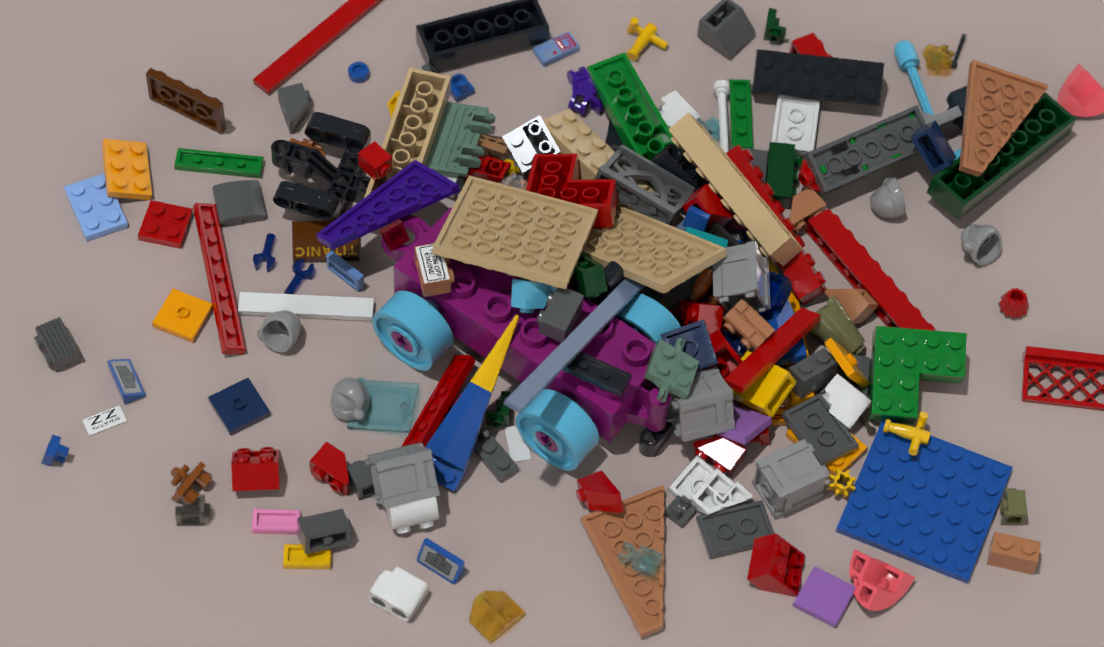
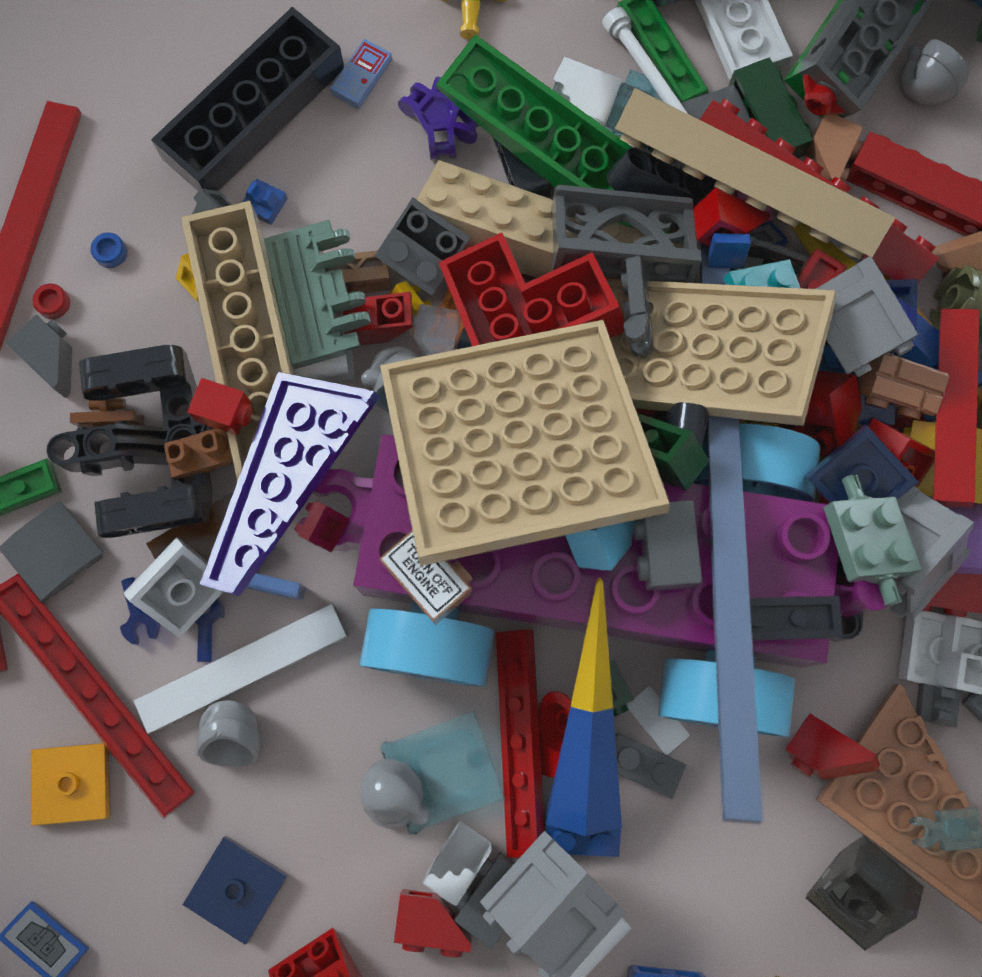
camera: 25 degrees left, 20 degrees up
(297, 244) = (172, 588): none -> white brick
(312, 82) = (51, 301): none -> red tile
(349, 184) = (198, 453): none -> dark orange hips
(362, 441) = (457, 863): none -> white piece
(577, 572) = (866, 893): none -> clear smoke slope
(624, 217) = (637, 310): none -> dark grey hinge

